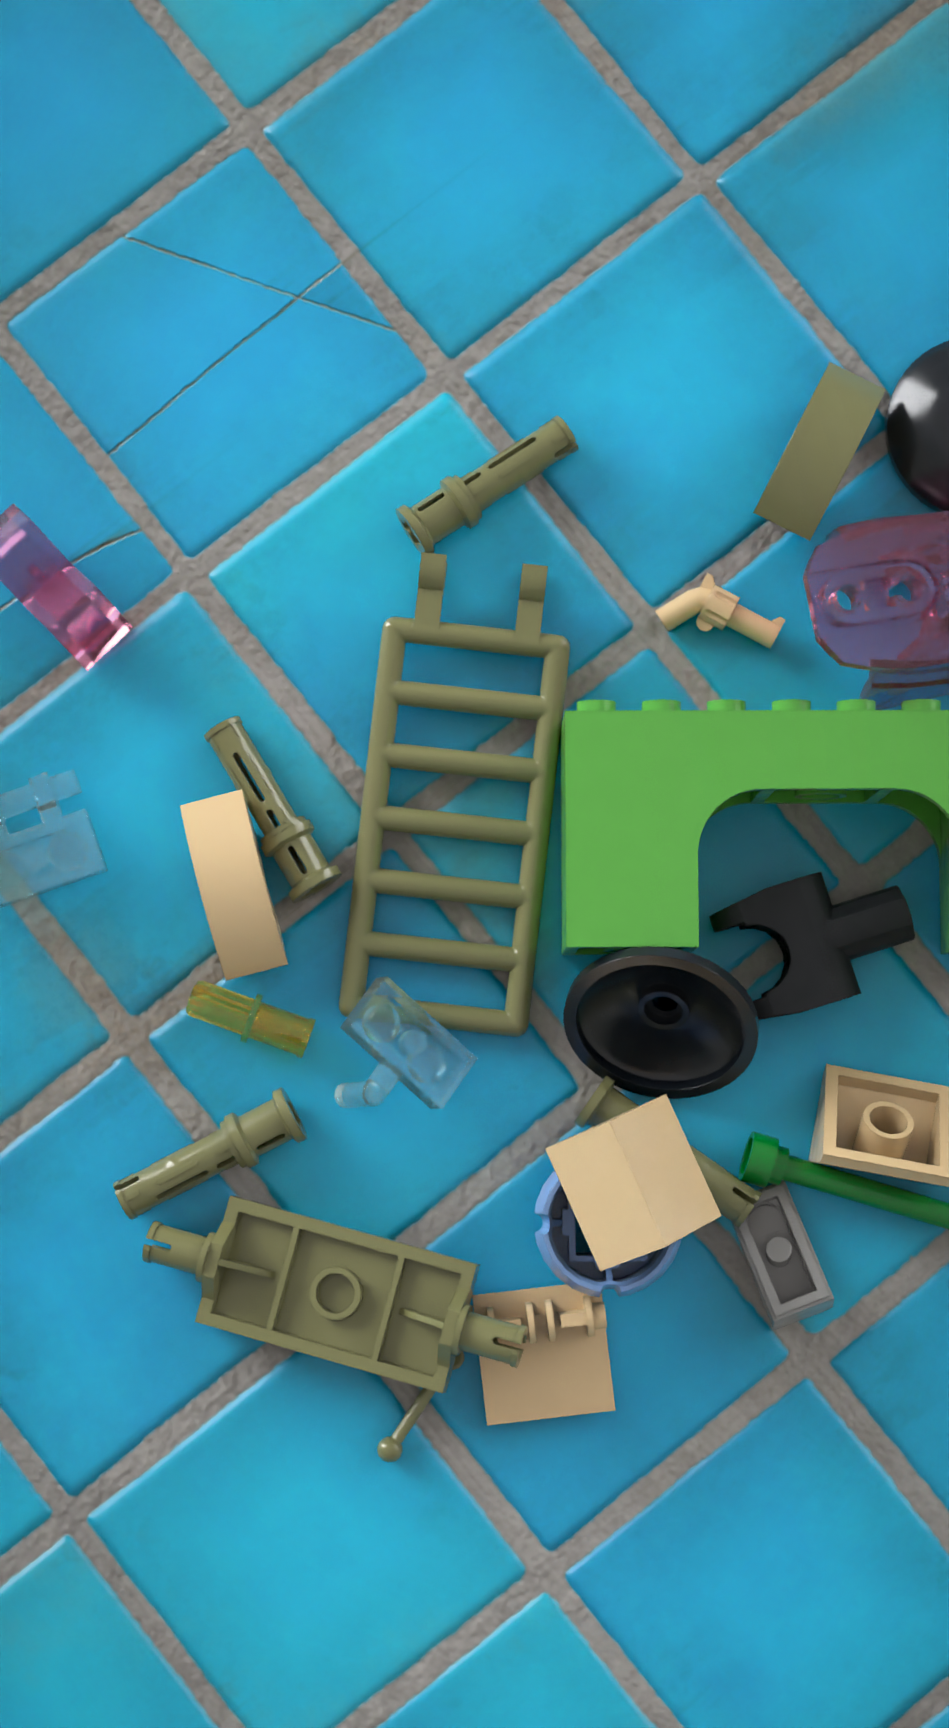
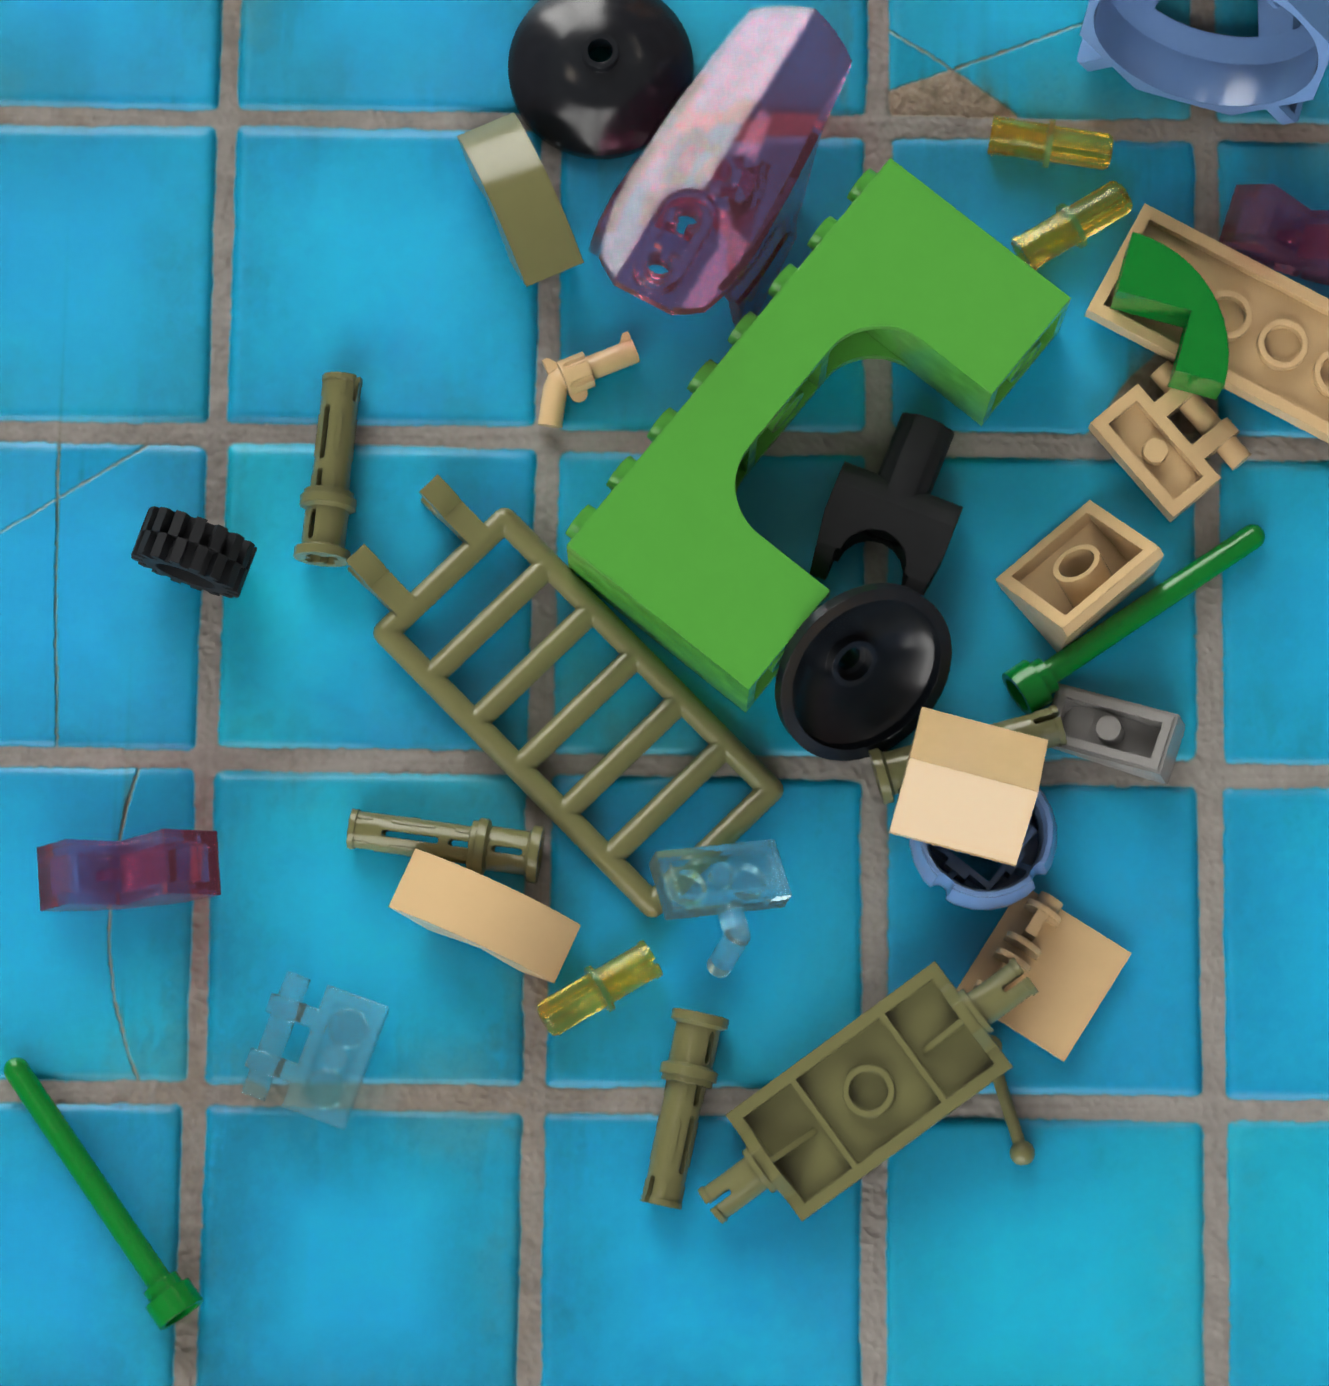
camera: 50 degrees left, 5 degrees down
(333, 431) = (193, 552): none -> black tyre

